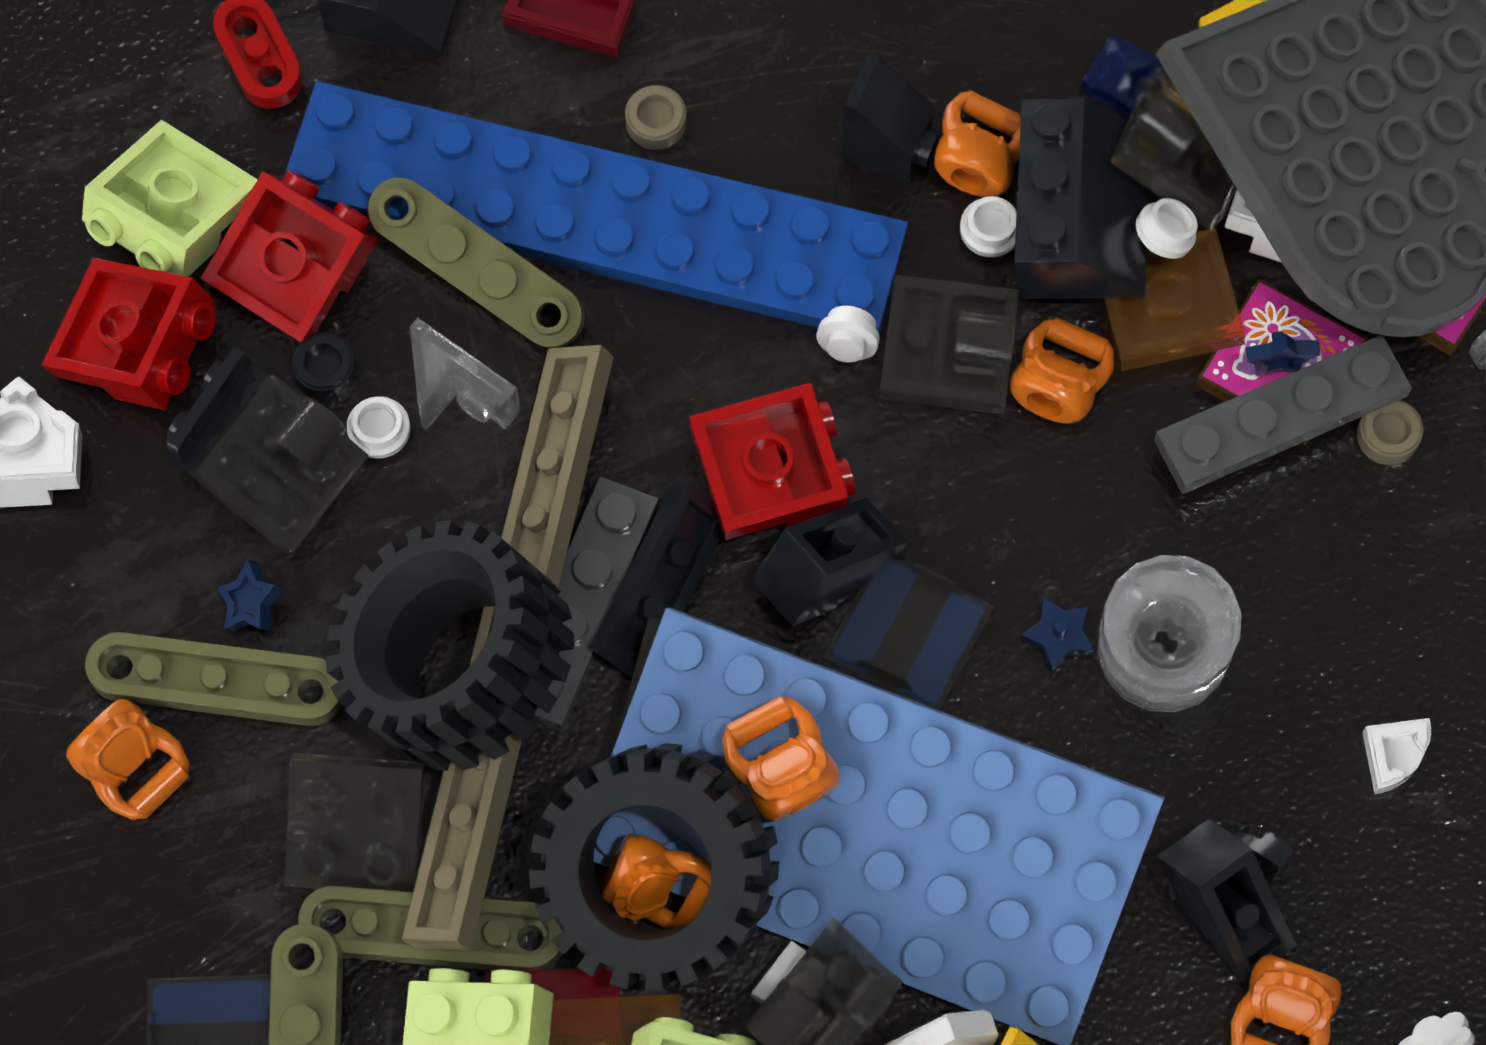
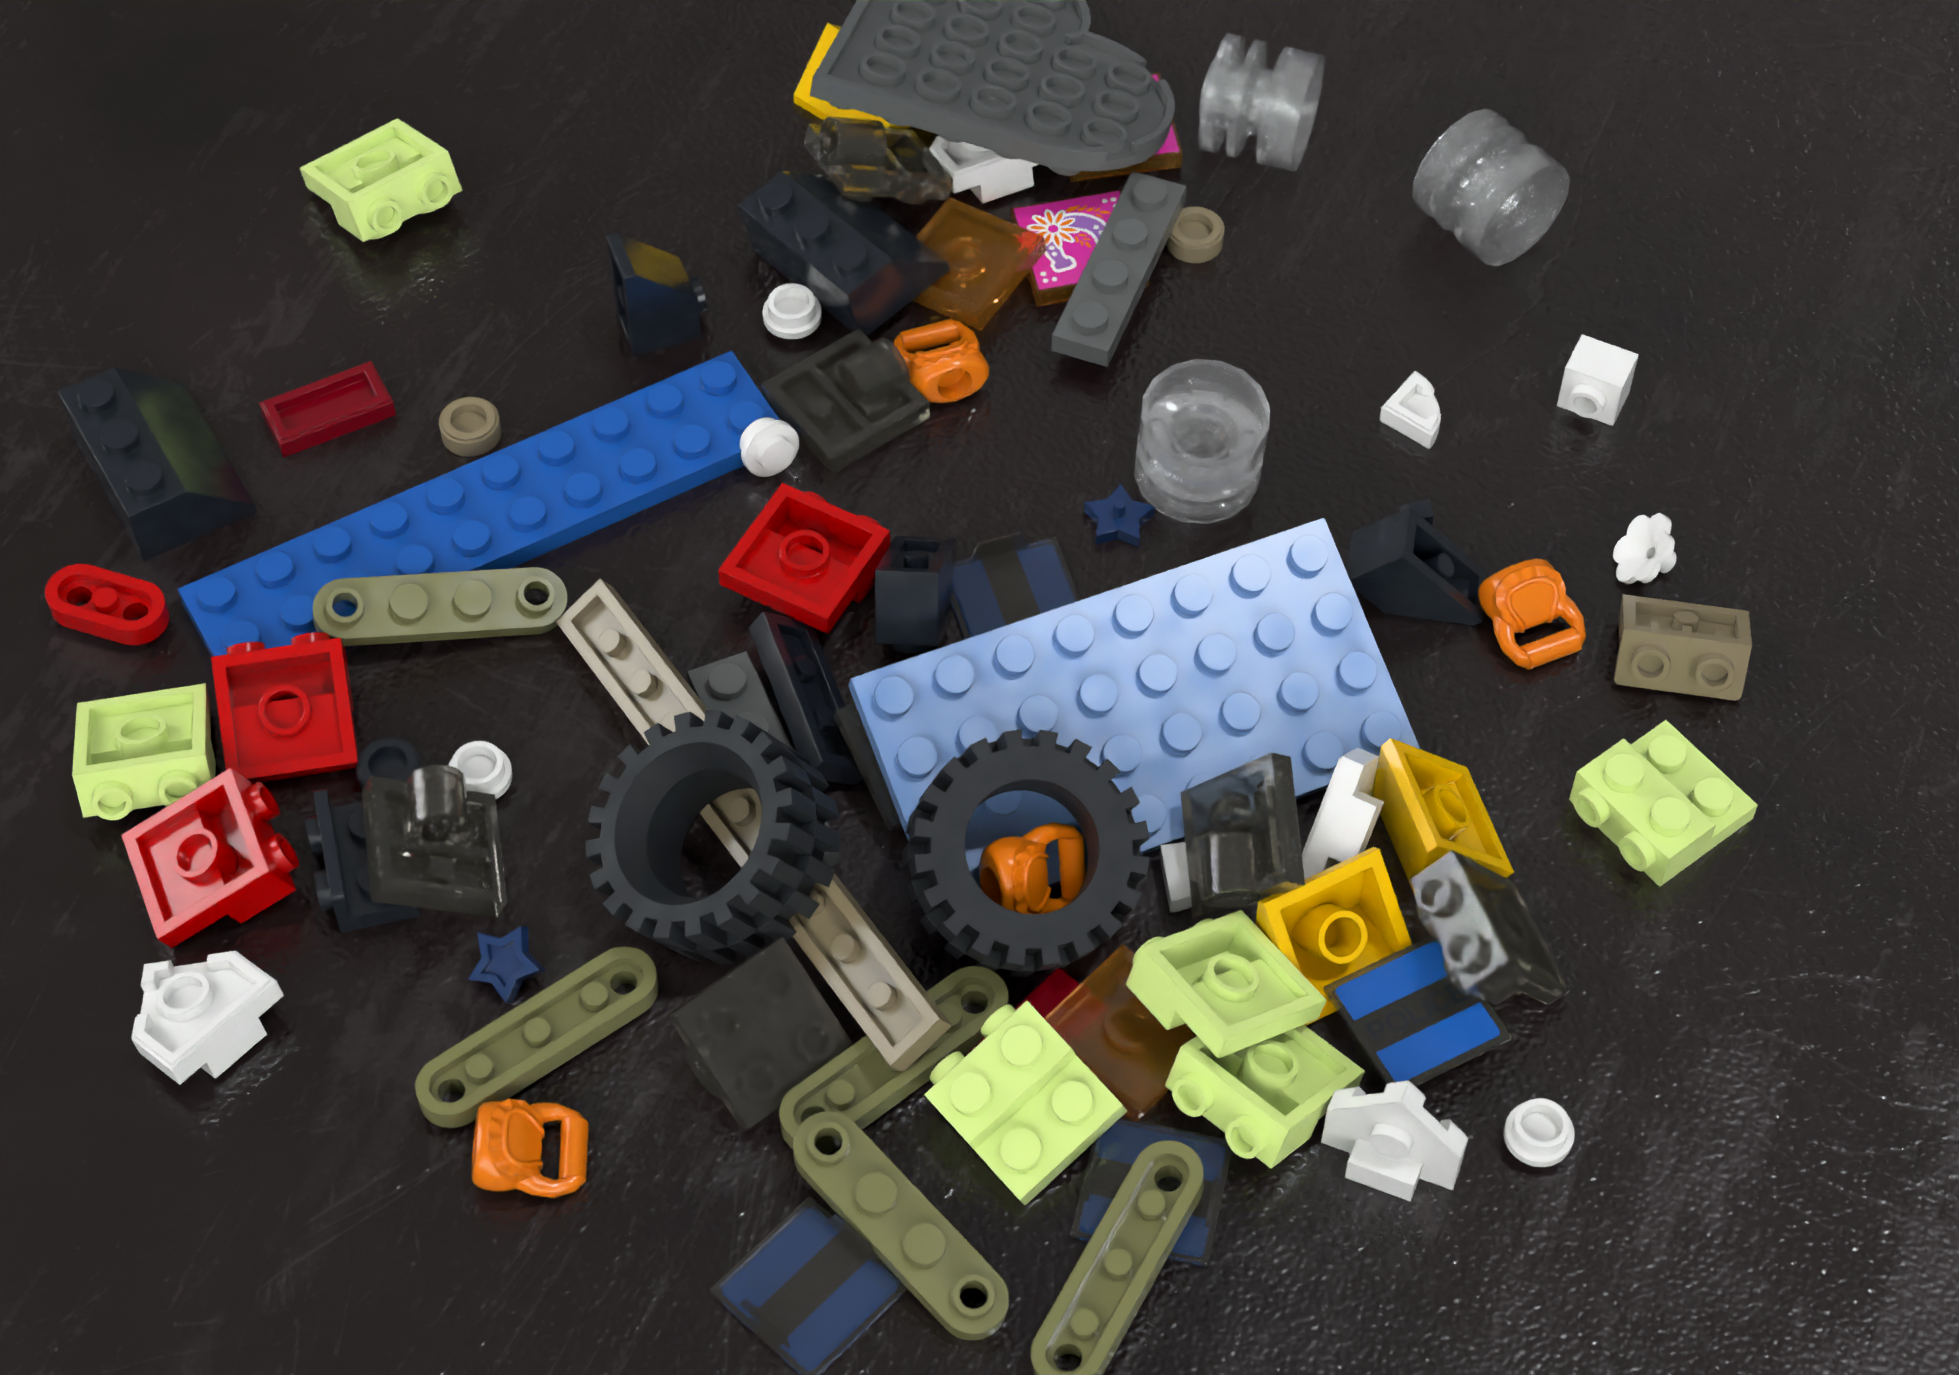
camera: 45 degrees left, 15 degrees down
(449, 371) = (494, 689): clear slope -> none
(789, 774) = (1060, 699): orange piece -> none
(972, 156) = (730, 270): orange piece -> none
(1119, 73) = (775, 154): clear blue tile -> none
(1167, 228) = (922, 211): white plate -> none
(1281, 354) = (1082, 228): dark blue piece -> none

